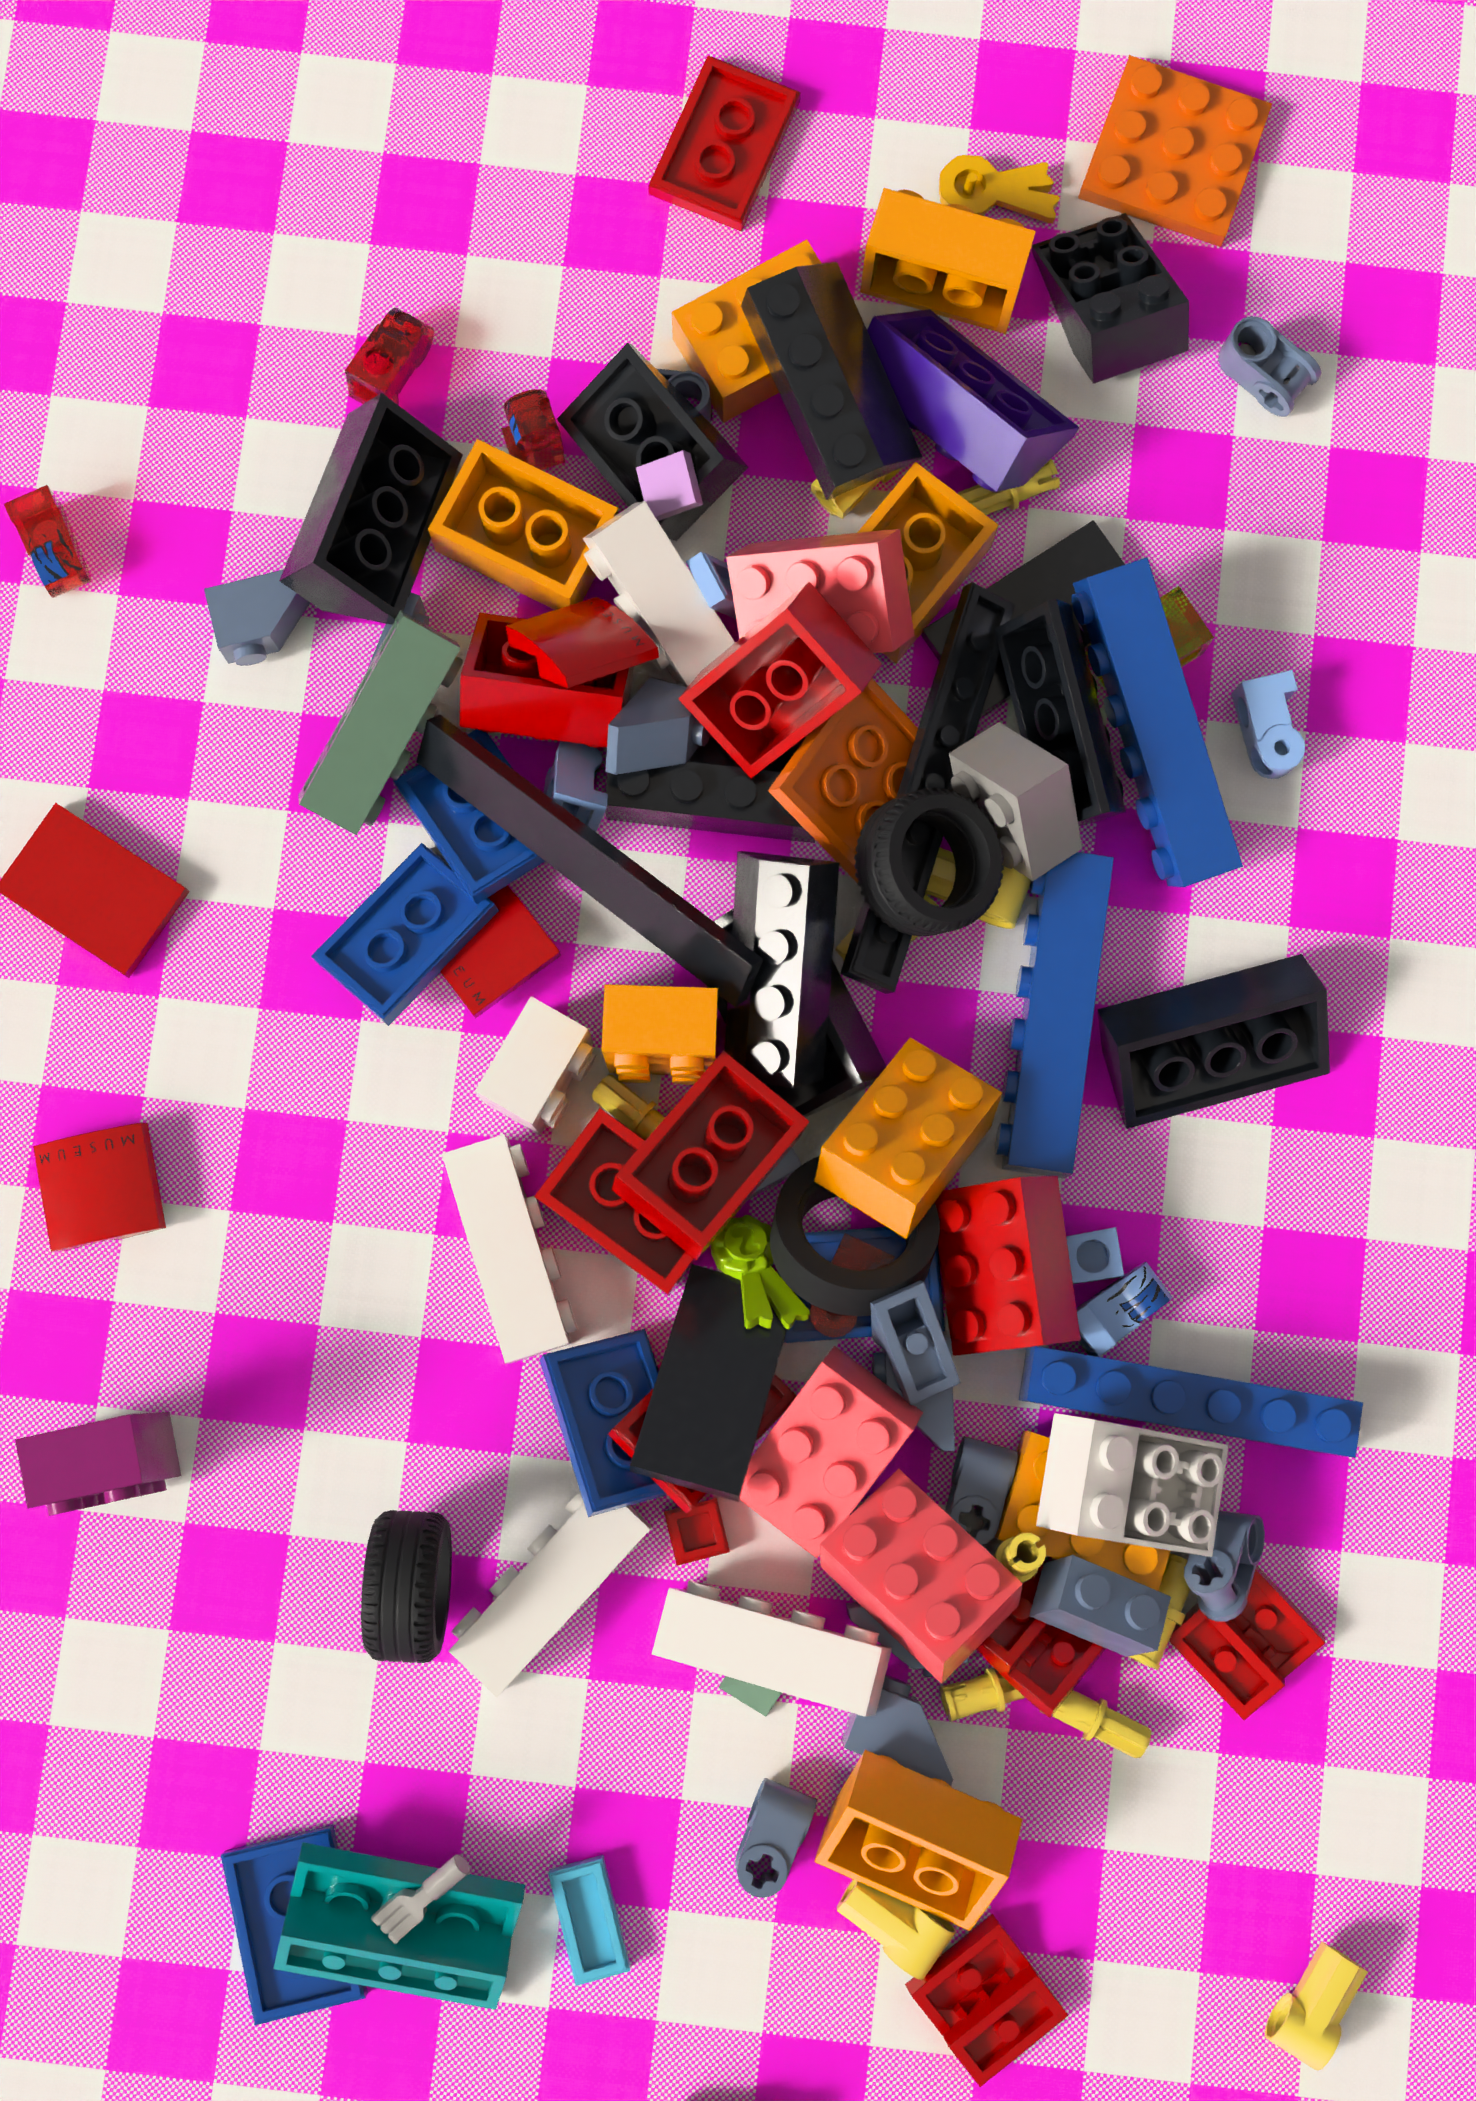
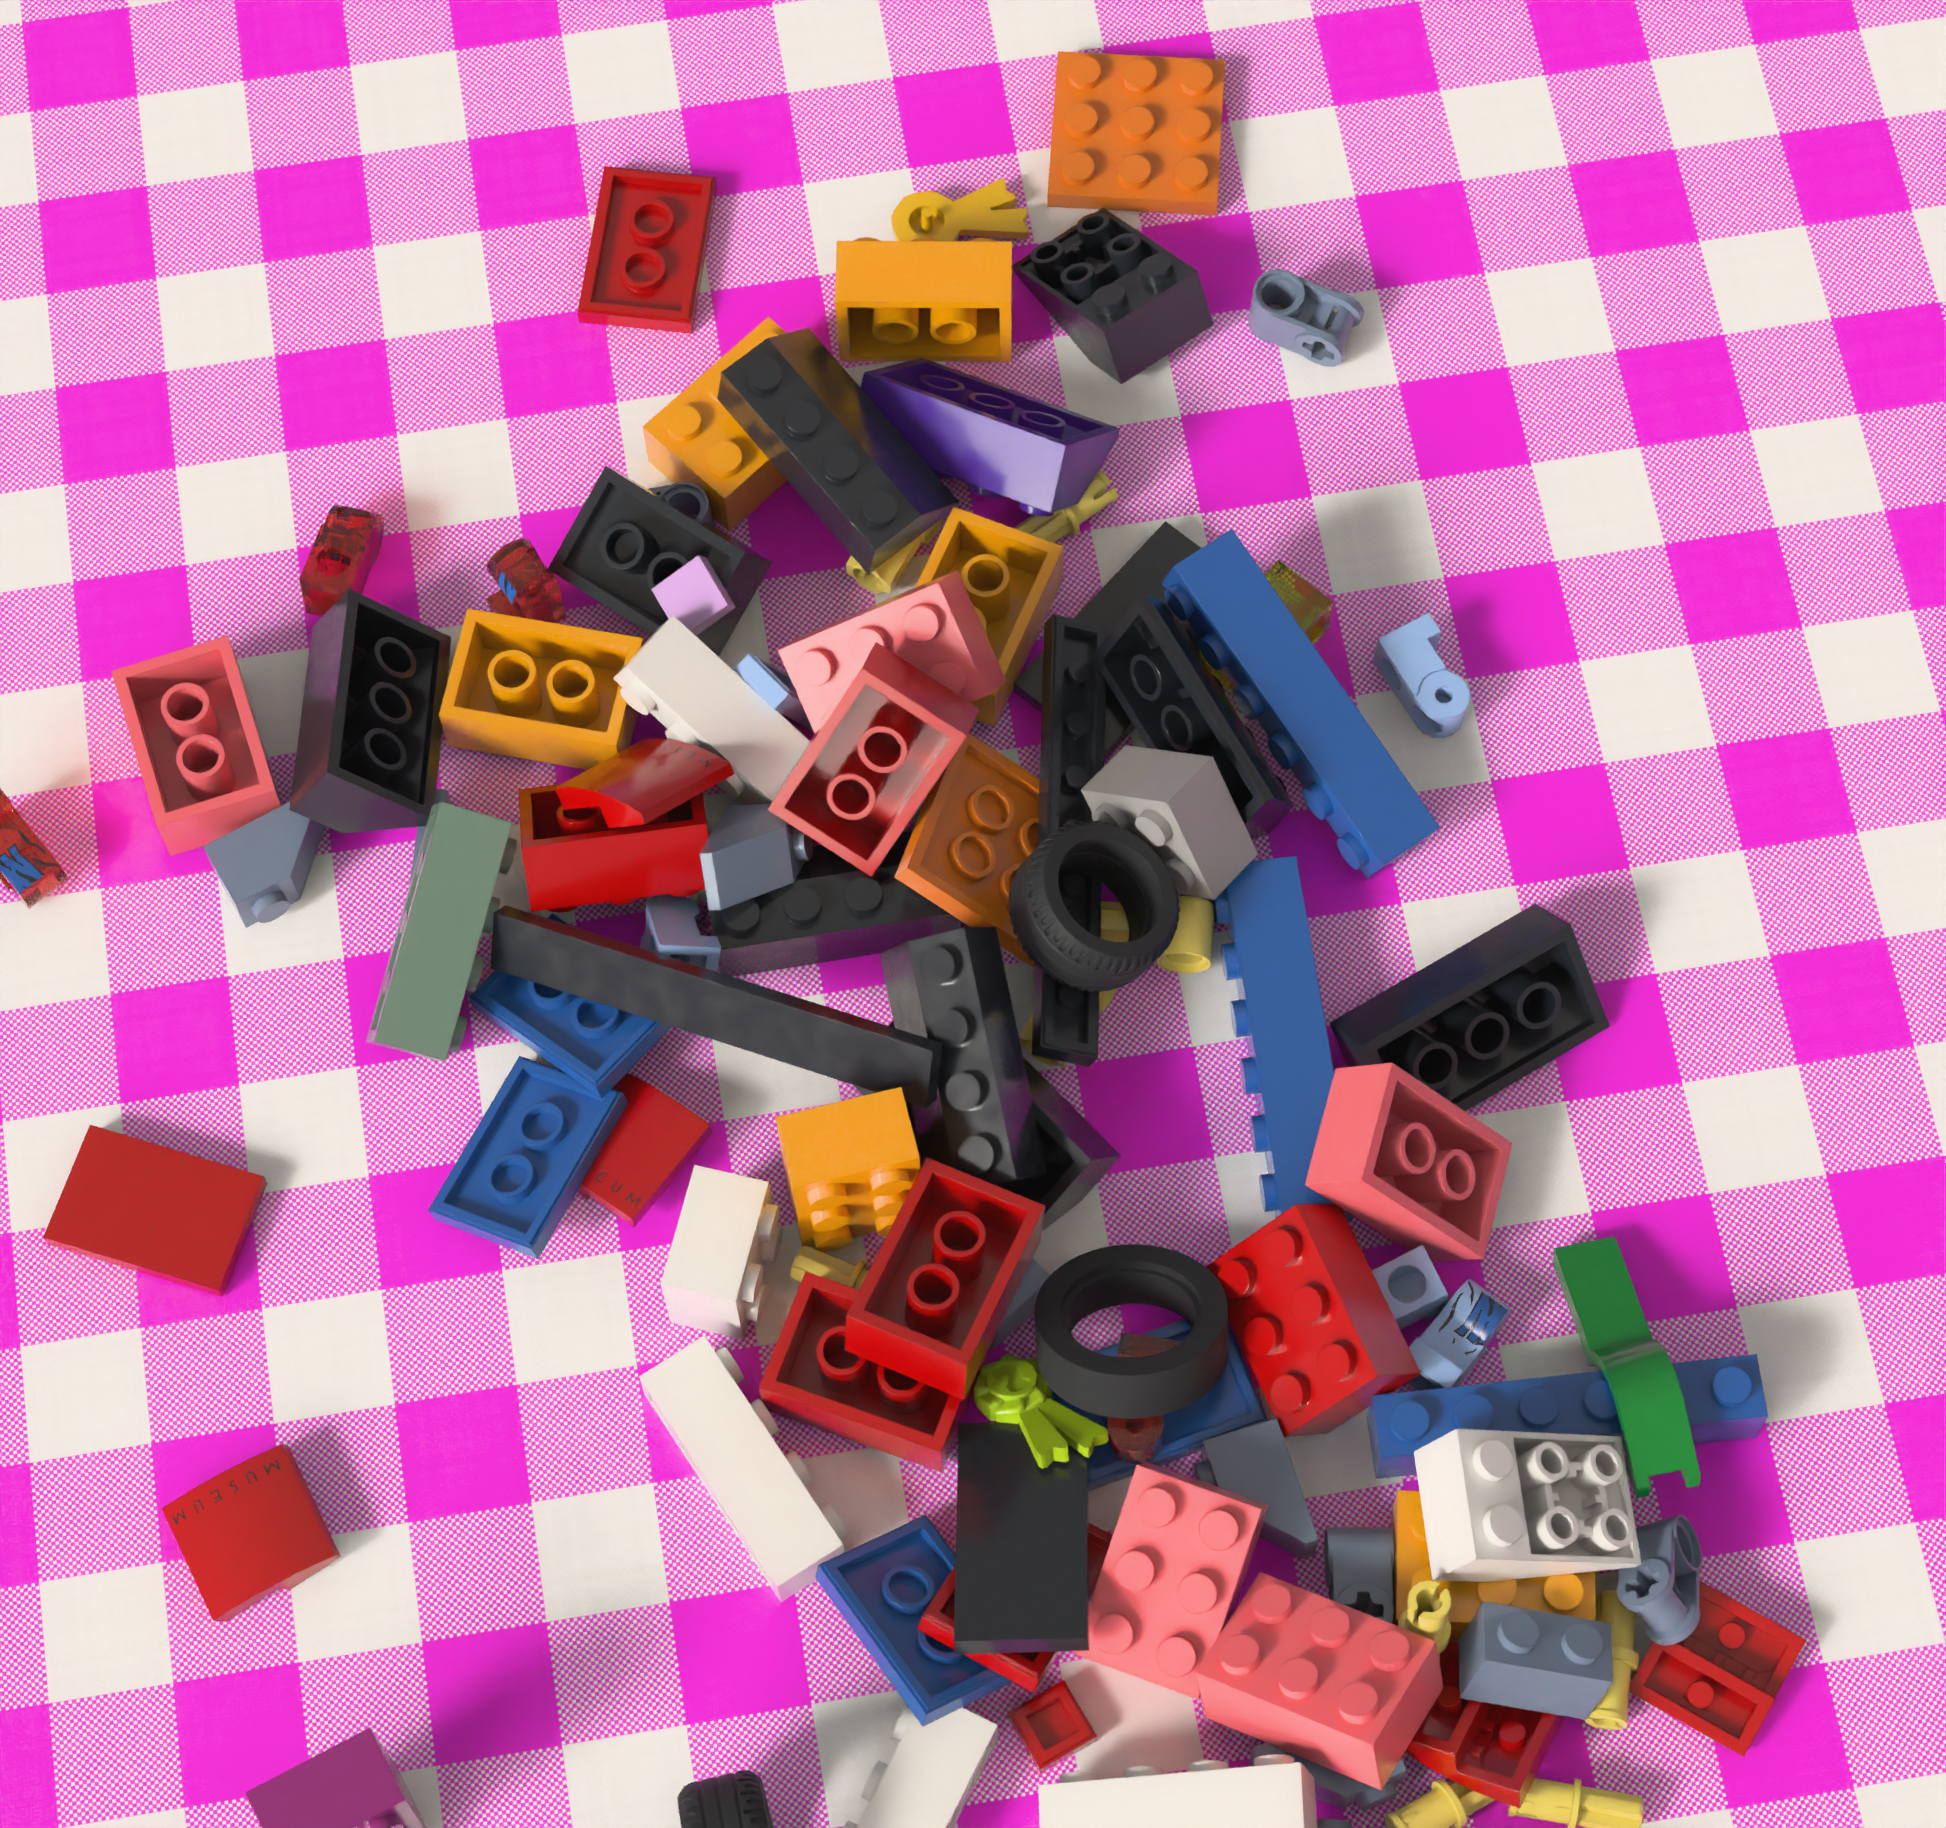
camera: 10 degrees left, 15 degrees down
(223, 494) = (196, 743): none -> coral brick
(907, 1137) = (1159, 1209): light orange brick -> none
(914, 1342) = (1229, 1416): sand blue slope -> none
(1125, 1158) = (1409, 1162): none -> coral brick
(1256, 1375) = (1634, 1363): none -> green piece

